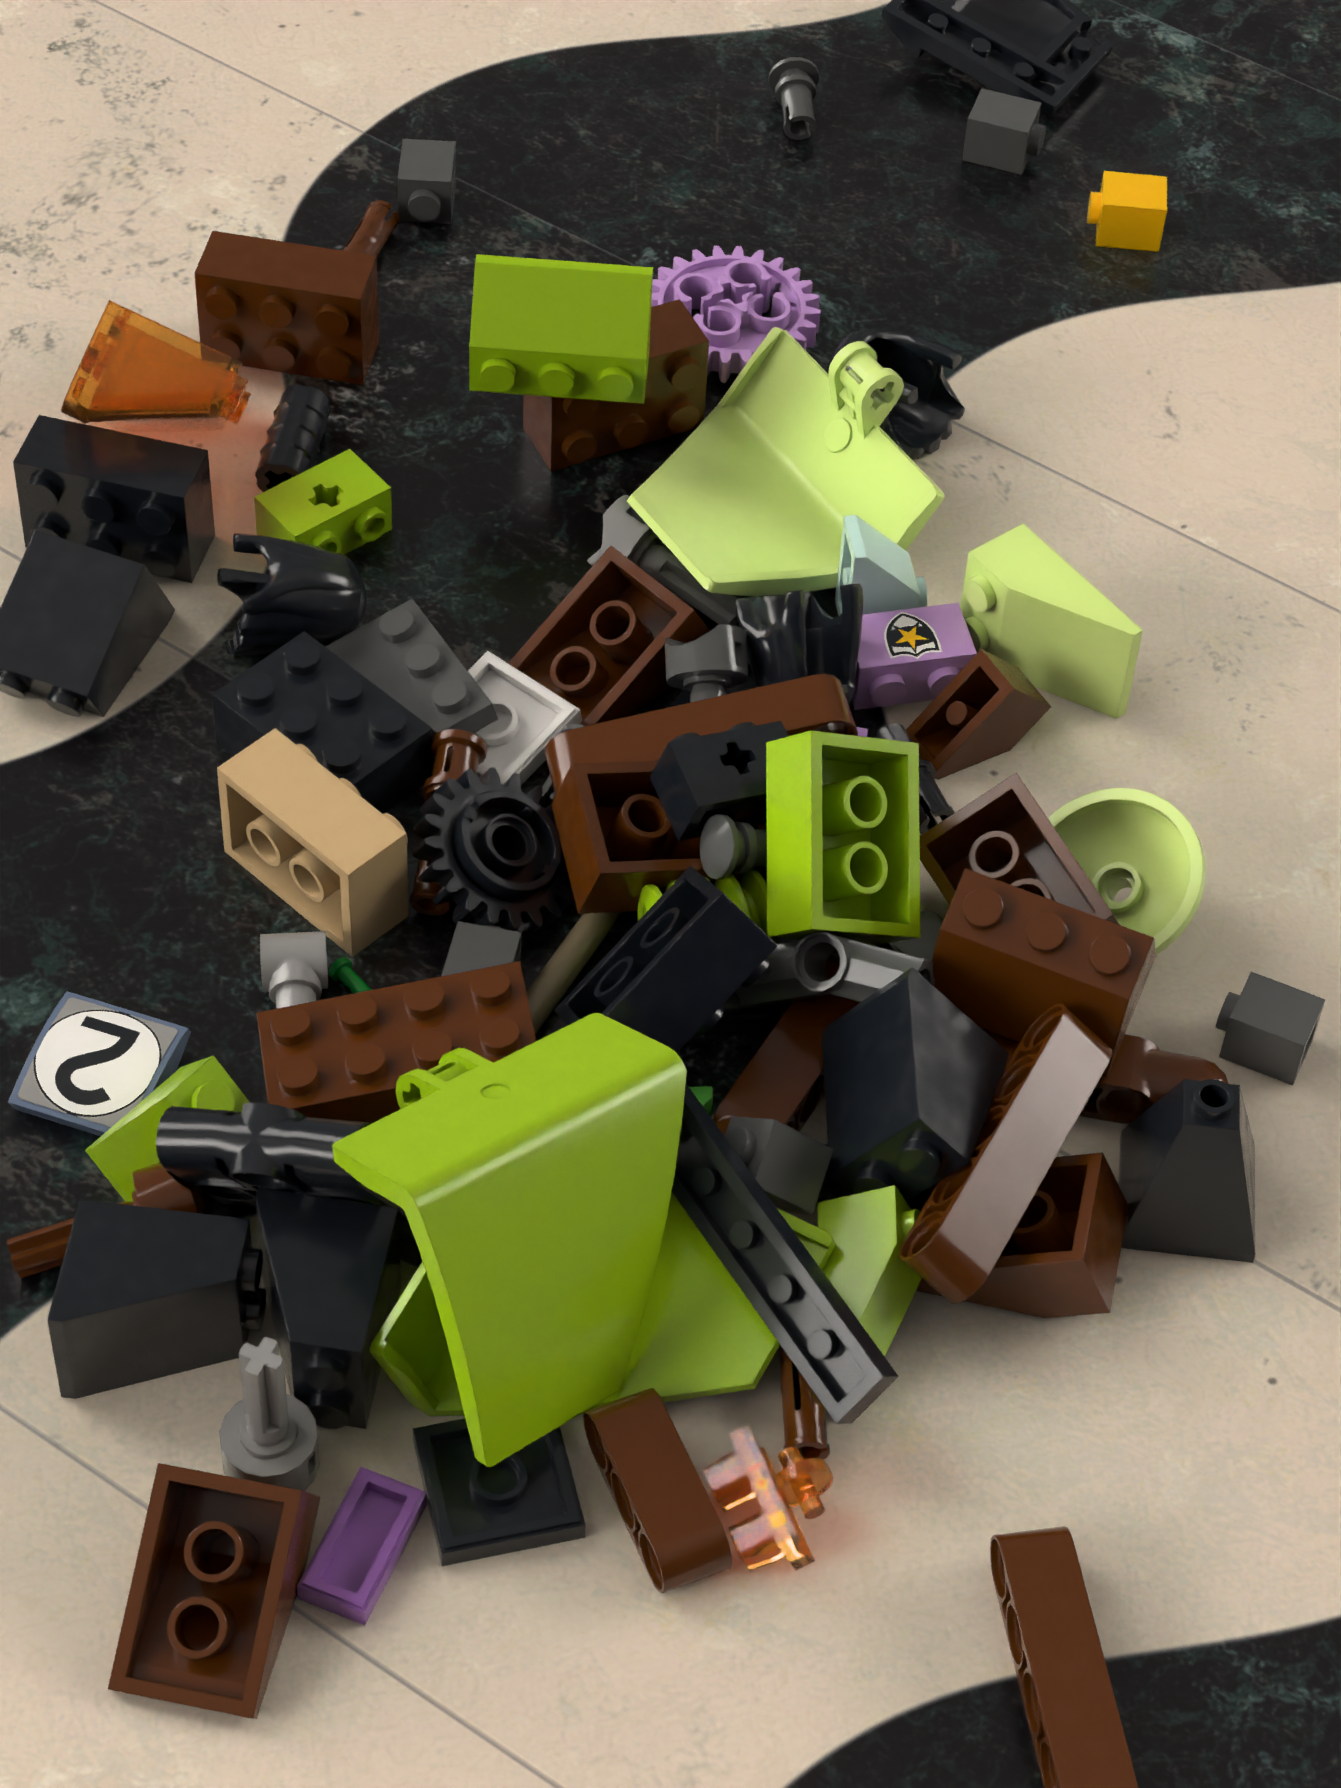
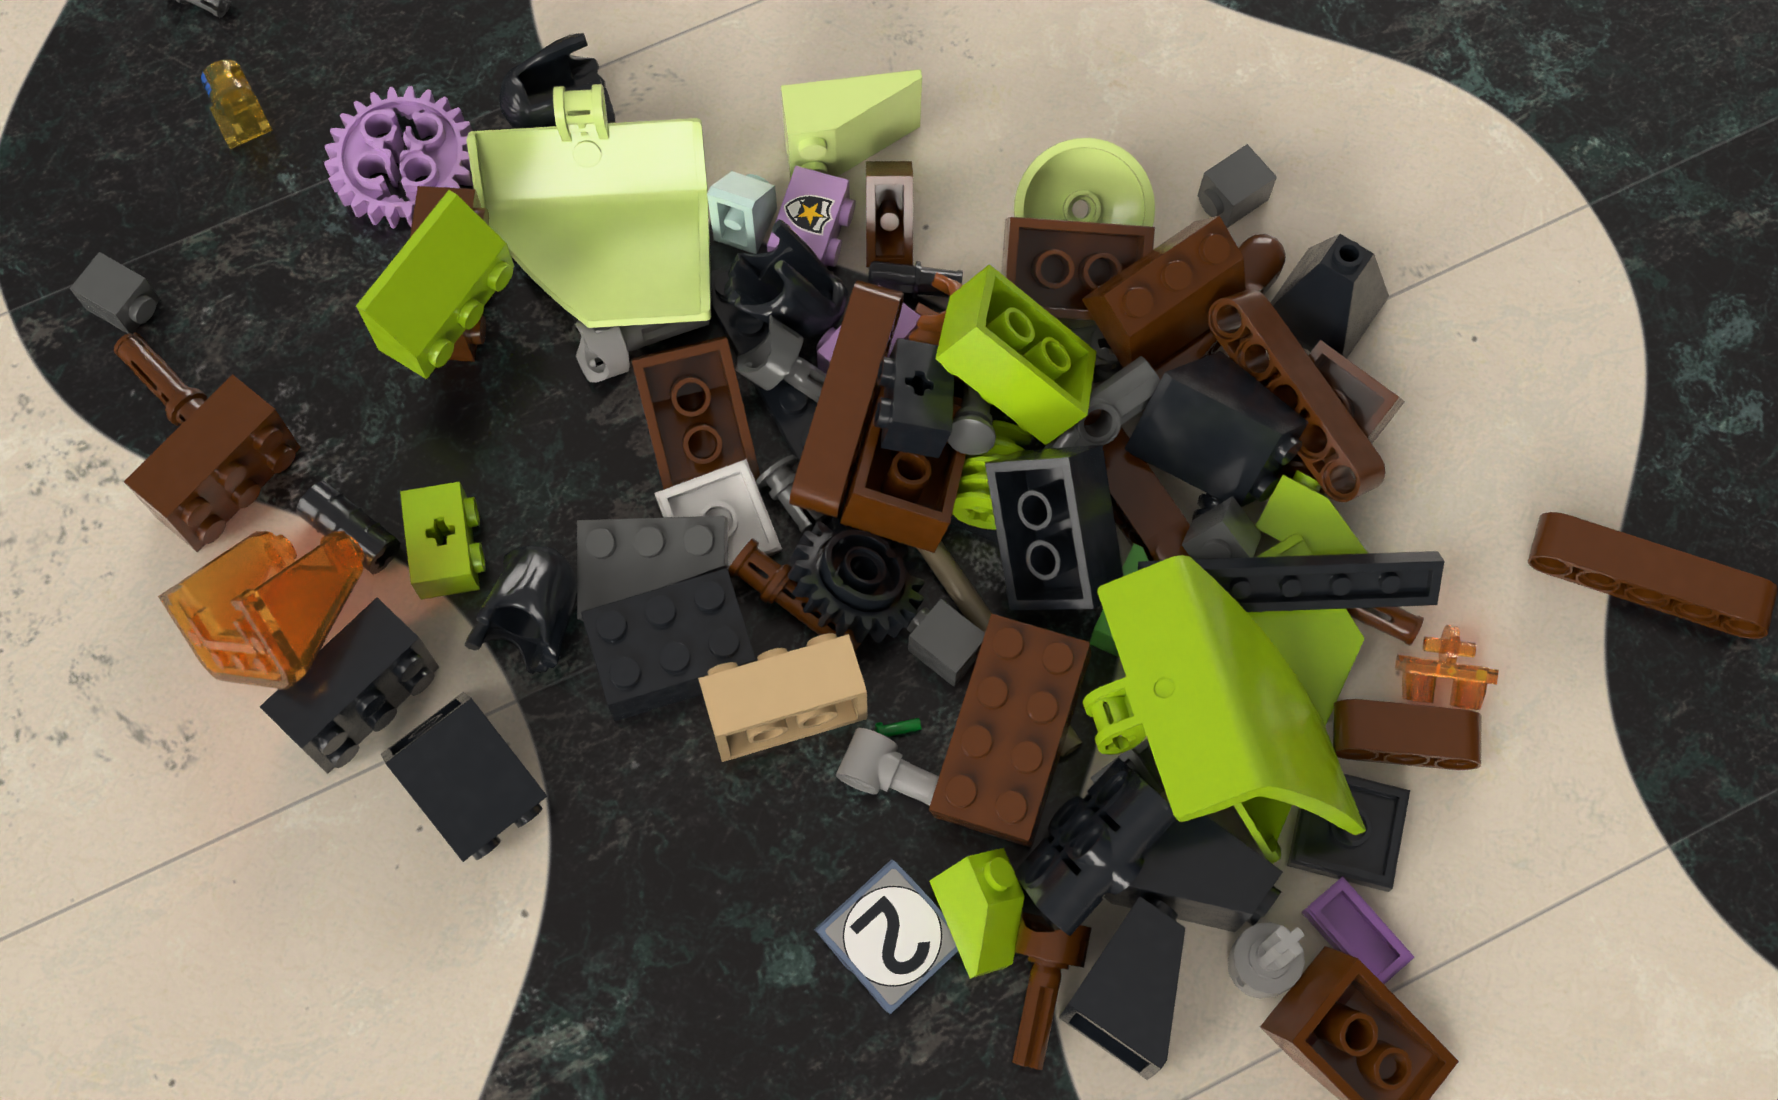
camera: 60 degrees left, 20 degrees up
(692, 168) = (234, 103): none -> clear yellow leg

